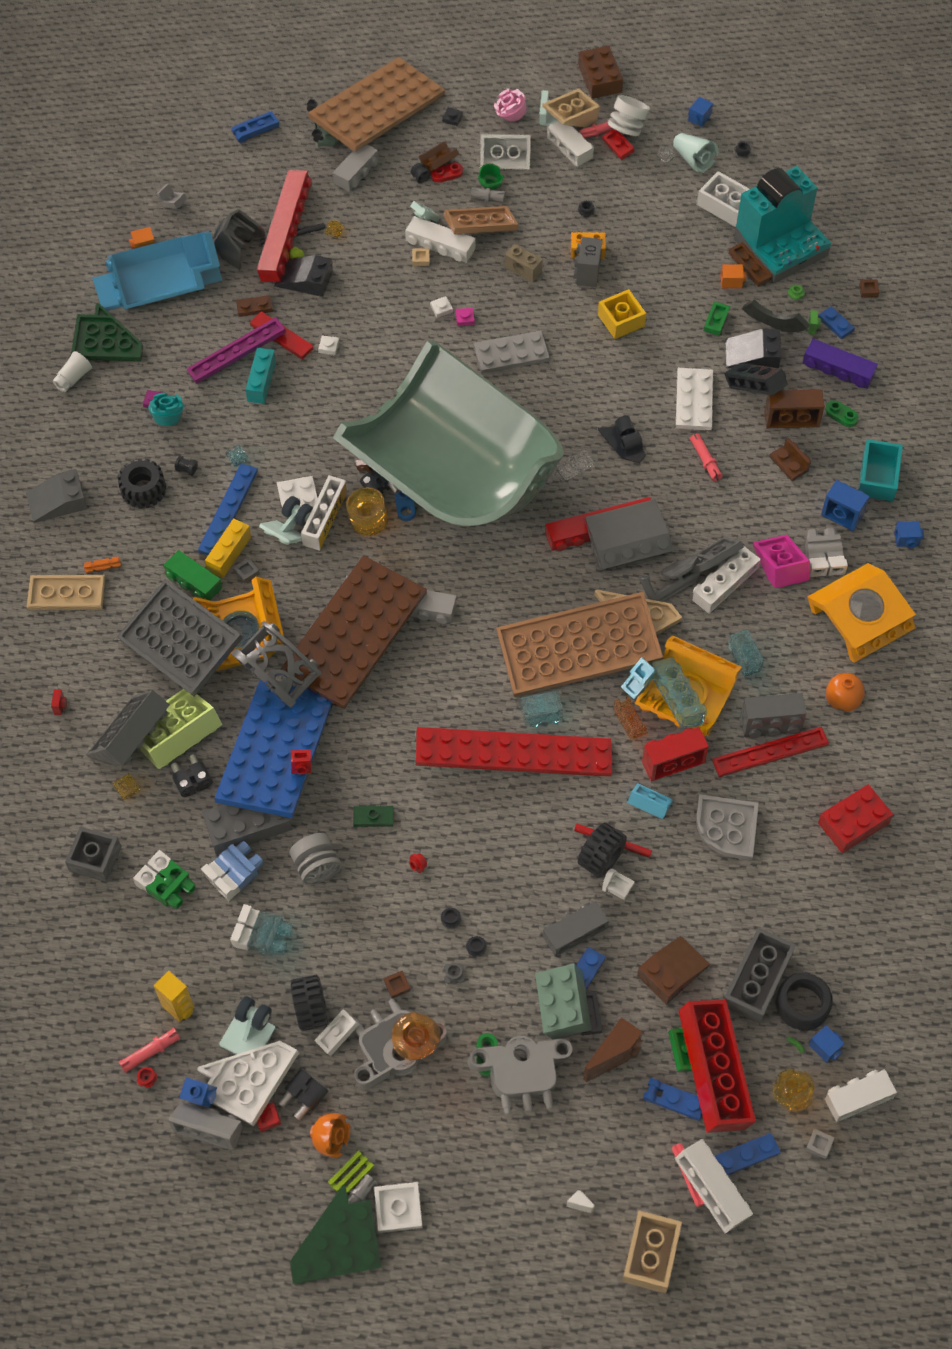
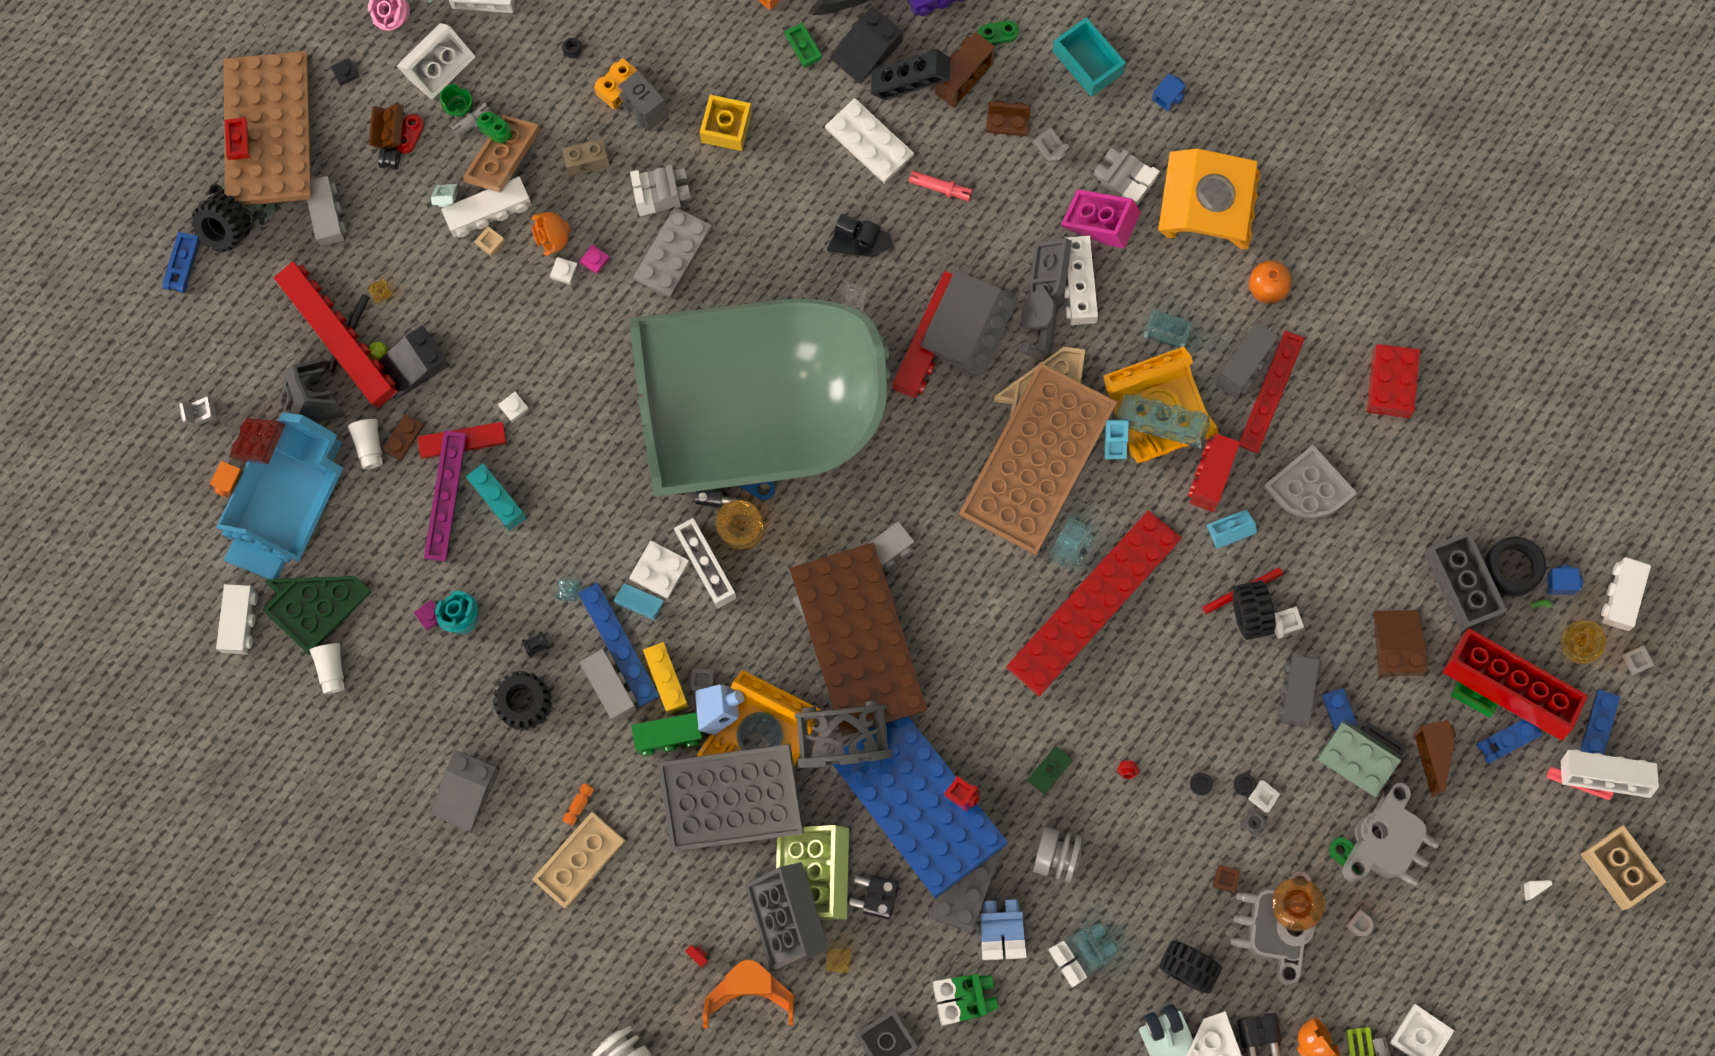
camera: 45 degrees left, 15 degrees up
(59, 306) = (236, 619): none -> white brick
(66, 742) = (748, 979): none -> orange piece
(184, 230) = (256, 440): none -> clear red plate
(195, 522) = (609, 684): none -> light grey brick
(232, 288) = (367, 442): none -> white plant
(236, 583) = (717, 708): none -> light blue torso
(266, 499) = (639, 601): none -> medium azure slope
(295, 121) = (221, 222): none -> black tyre
(295, 514) = (693, 615): light aqua plate -> none
(336, 1032) = (1231, 961): white plate -> none
(352, 89) = (236, 138): none -> red plate
(445, 1101) = (1361, 924): none -> light grey tile
(458, 280) = (552, 229): none -> orange cylinder
(478, 963) = (1264, 796): none -> white plate
(493, 204) = (494, 127): none -> green plate
(542, 312) = (659, 190): none -> light grey hips
(629, 719) = (1143, 479): clear orange hinge -> none
(799, 495) = (1050, 145): none -> light grey bracket
(844, 505) = (1099, 118): blue brick -> none

